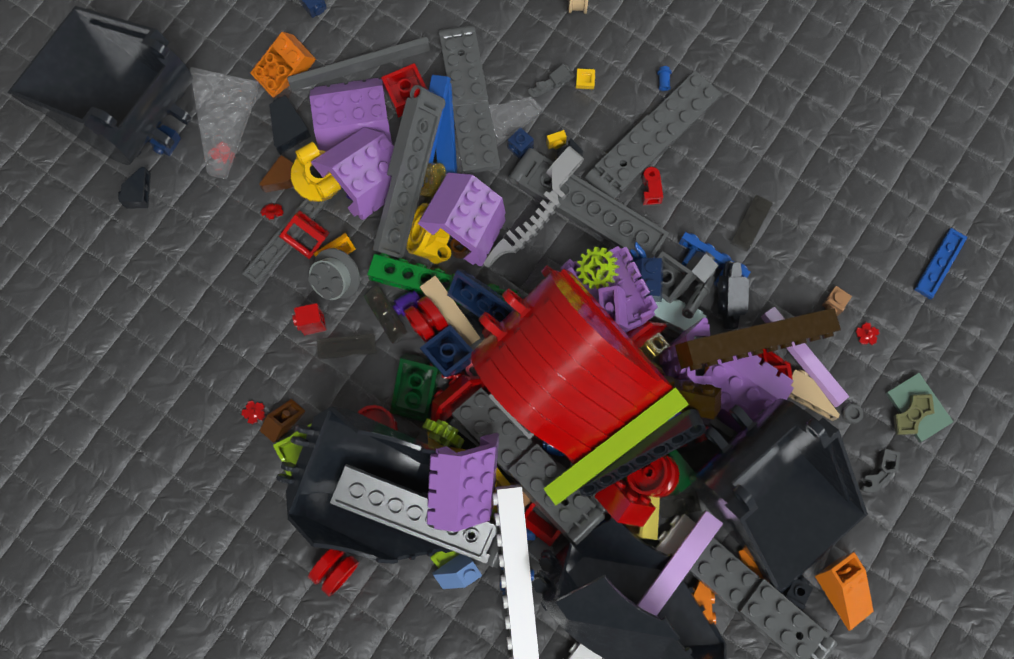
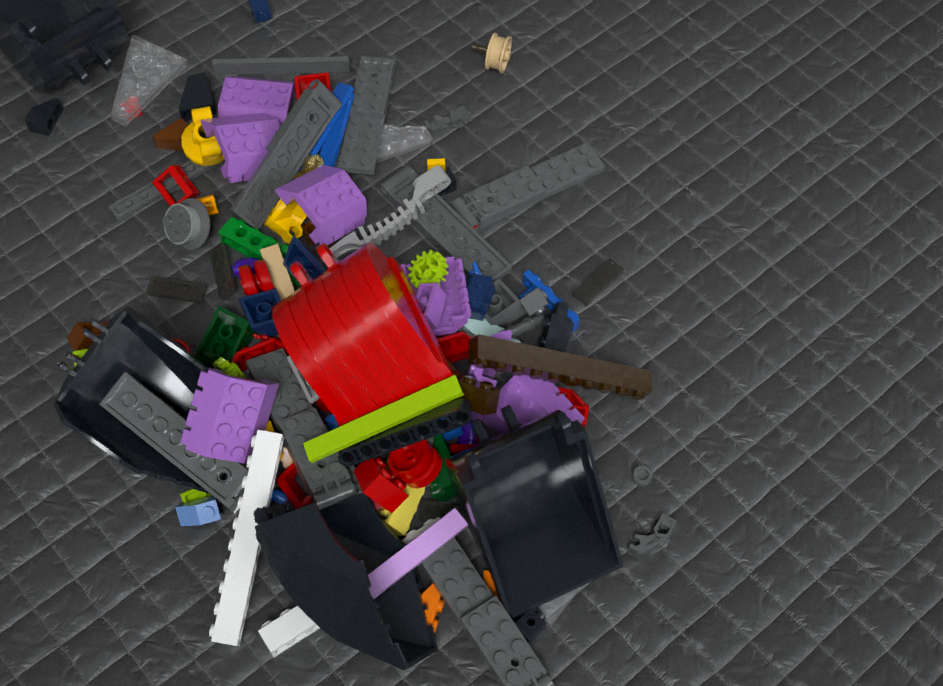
camera: 15 degrees right, 15 degrees down
(159, 148) = (89, 89): dark blue brick -> none
(254, 412) = (68, 323): red plant -> none
(272, 210) = (156, 163): red plant -> none
(283, 59) = (215, 44): orange slope -> none
(309, 319) = (150, 255): red brick -> none
(333, 570) = (82, 474): red wheel -> none
(520, 142) = (401, 158): dark blue brick -> none
(585, 79) = (482, 125): yellow plate -> none
(651, 350) = (459, 359): clear yellow leg -> none
(653, 184) = (511, 233): red leg -> none
(664, 78) = (556, 139): blue pin -> none
(811, 396) = (604, 446): tan slope -> none
(812, 365) = (617, 426): lavender tile -> none
(837, 299) = (659, 369): medium nougat bracket -> none
(847, 589) = (580, 633): orange slope -> none
(867, 334) = (680, 408): red plant -> none
(901, 399) = (712, 487): sand green tile -> none
(908, 421) = (694, 494): olive tile -> none
(940, 263) = (774, 363): blue tile -> none

